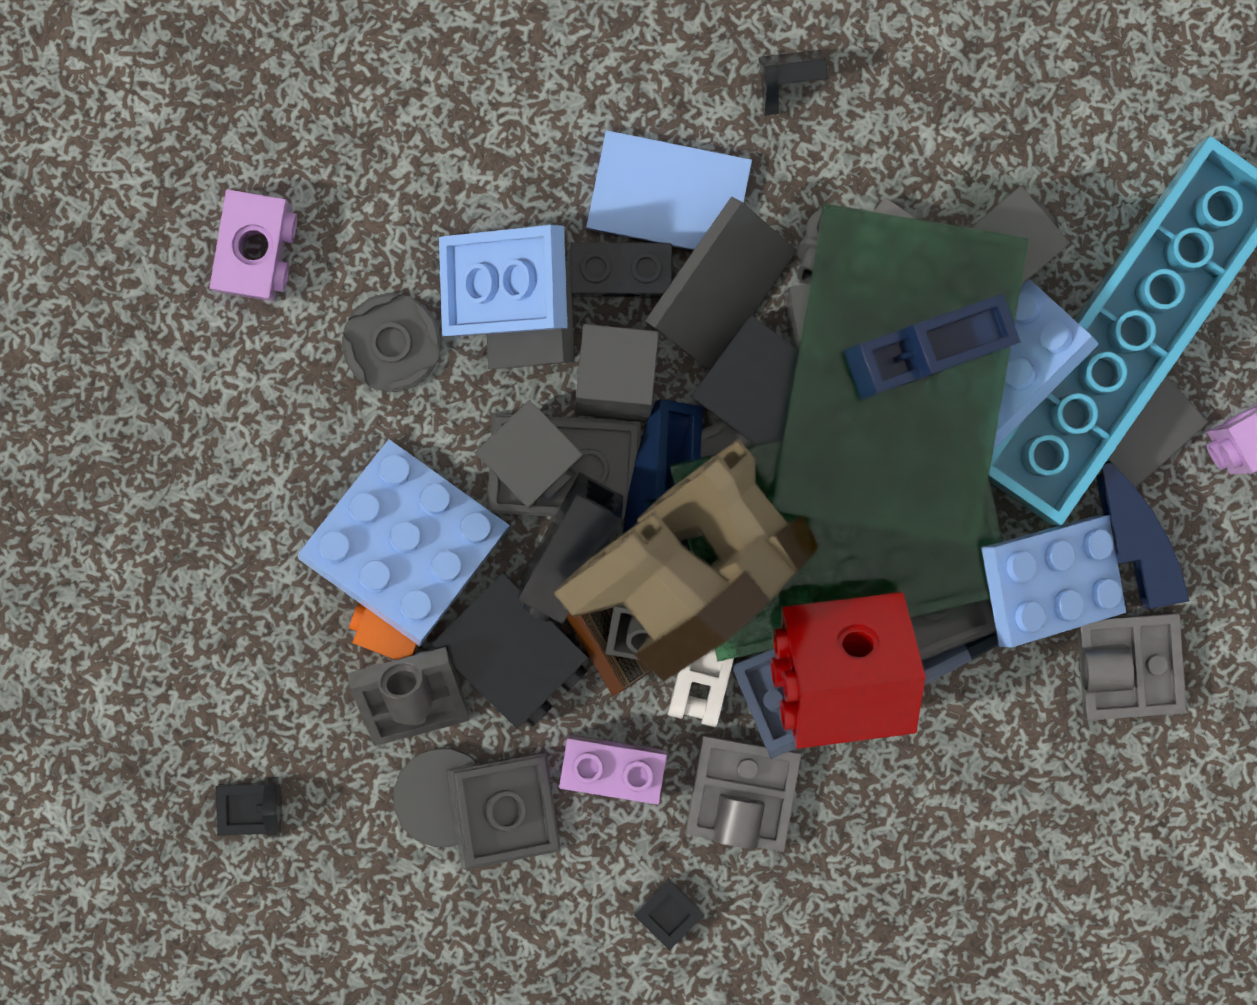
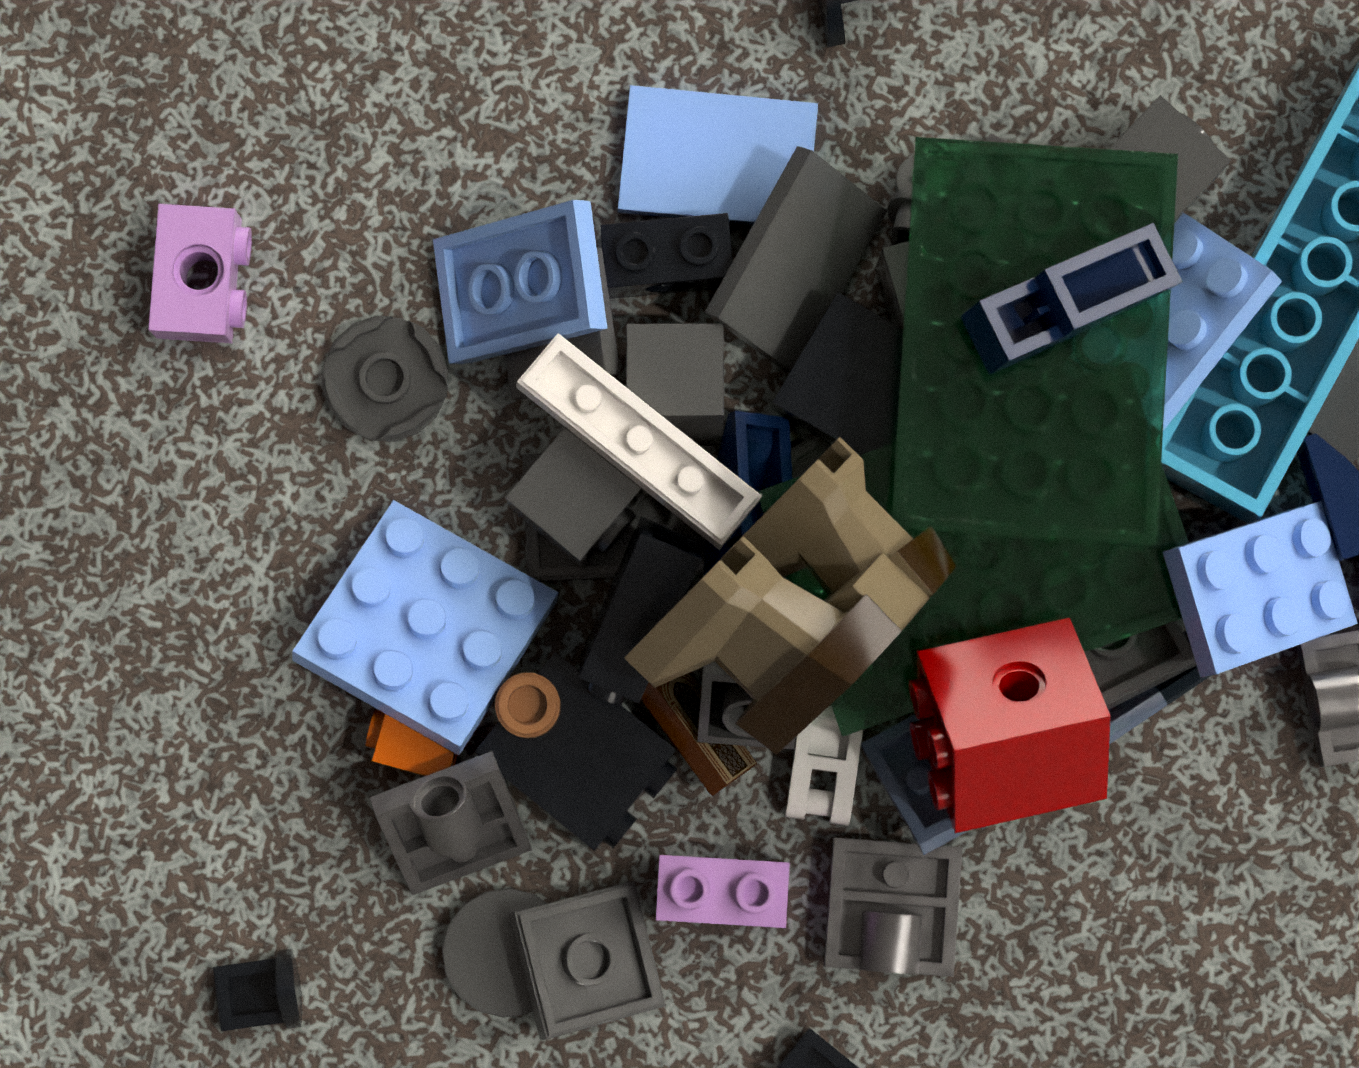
camera: 10 degrees left, 5 degrees down
(476, 613) = (527, 705): none -> medium nougat tile
(582, 419) = (638, 441): none -> white tile

